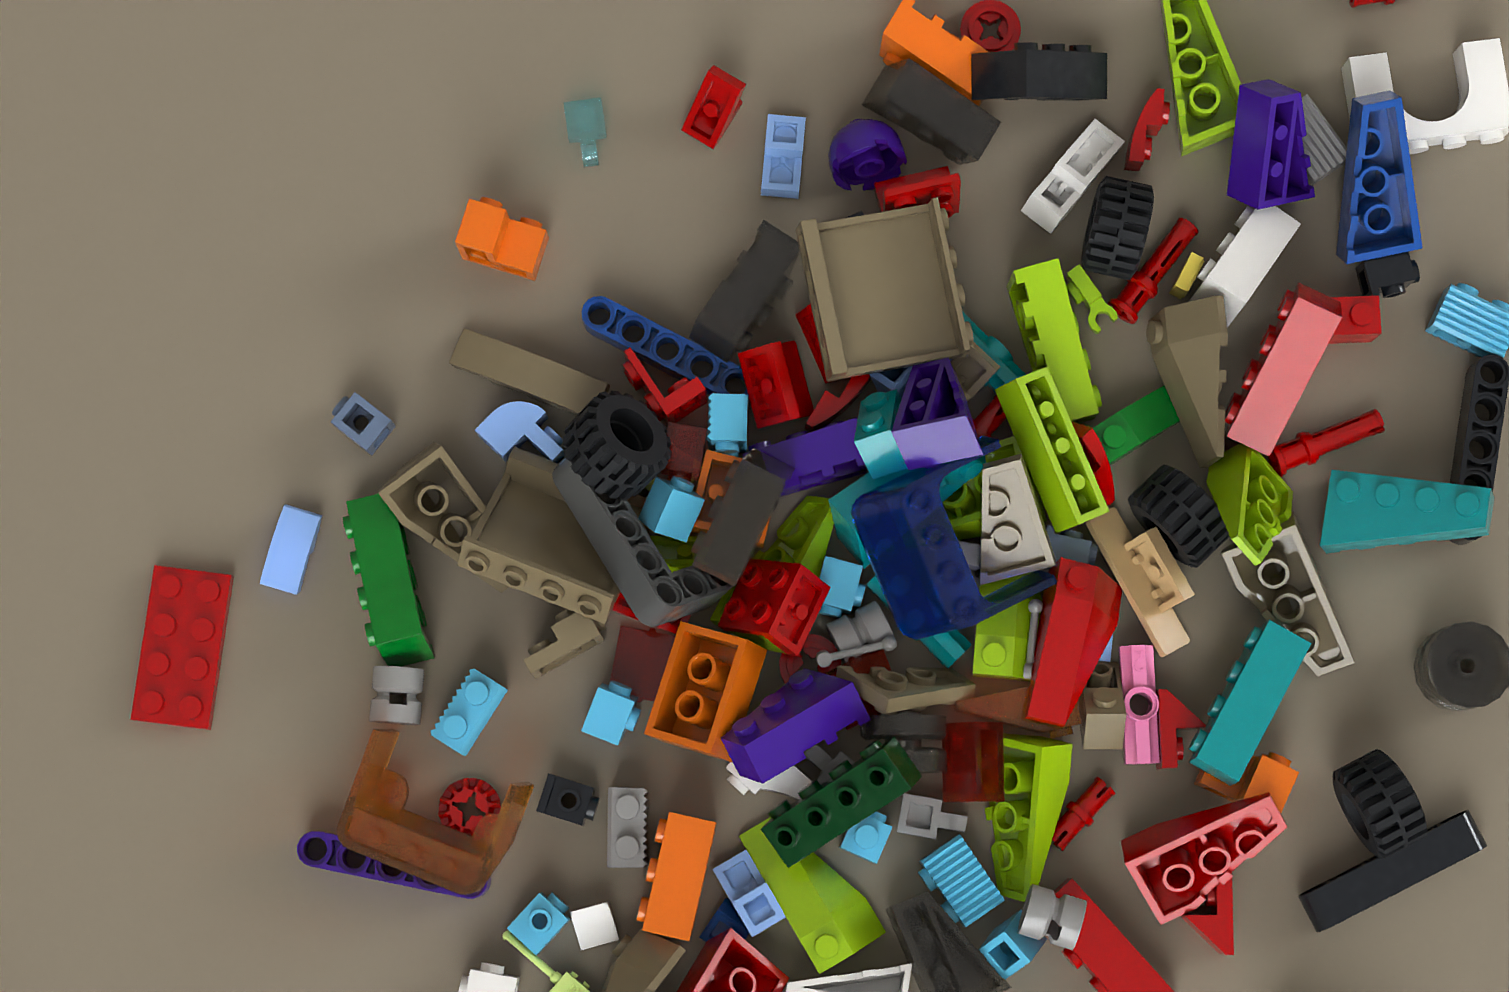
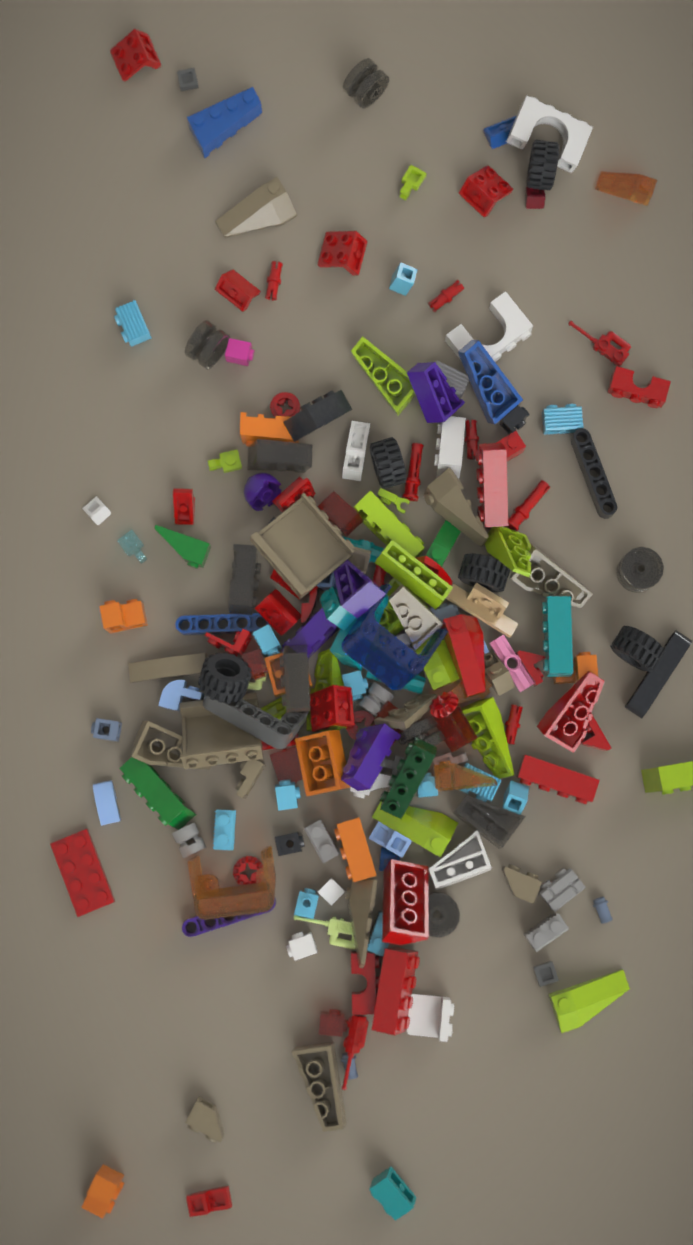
camera: 25 degrees left, 0 degrees up
(558, 31) = (97, 510): none -> white slope
(671, 508) = (263, 691): medium azure brick -> none
(682, 187) = (189, 548): none -> green slope
(783, 156) = (225, 511): light blue slope -> none
(825, 658) = (366, 719): light grey hinge -> none
(837, 72) = (228, 461): none -> lime plate
(924, 847) = (455, 777): none -> clear orange slope
(983, 271) = (340, 513): none -> clear red brick
(991, 710) = (451, 702): none -> red gear
(1035, 607) = (444, 646): light grey hinge -> none
(1052, 917) = (526, 776): light grey wheel -> none
(1149, 123) = (376, 409): red slope -> none
(1187, 276) = (429, 467): light yellow tile -> none
(1291, 266) = (471, 438): none -> red pin
(1390, 510) = (572, 520): teal wedge -> none

